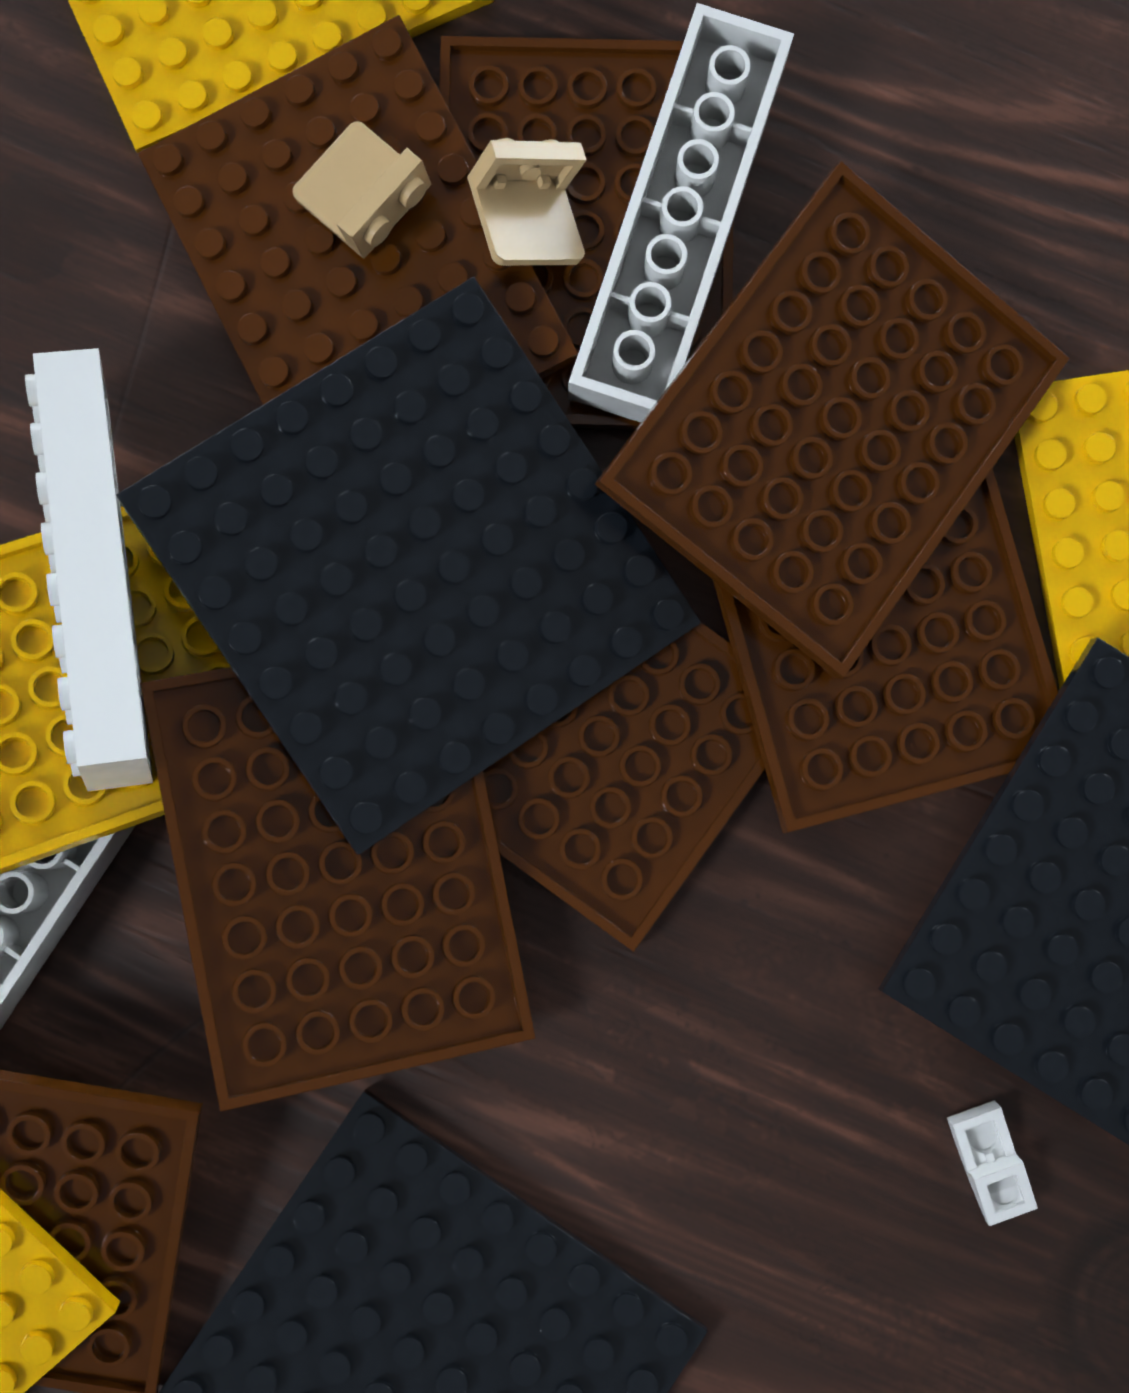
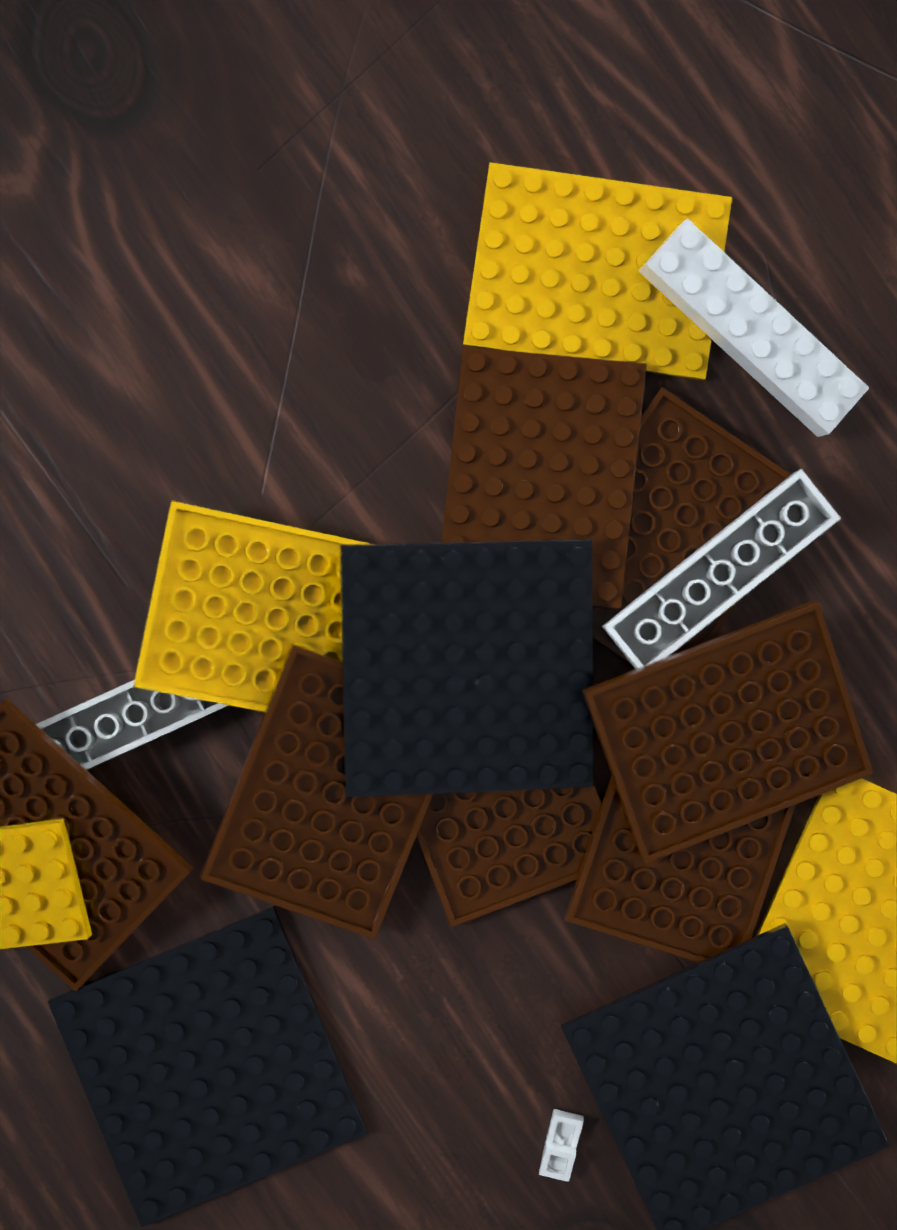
camera: 40 degrees right, 5 degrees up
(88, 571) = (305, 569): white brick -> none
(362, 187) = (565, 450): tan bracket -> none
(525, 201) = (645, 515): tan bracket -> none

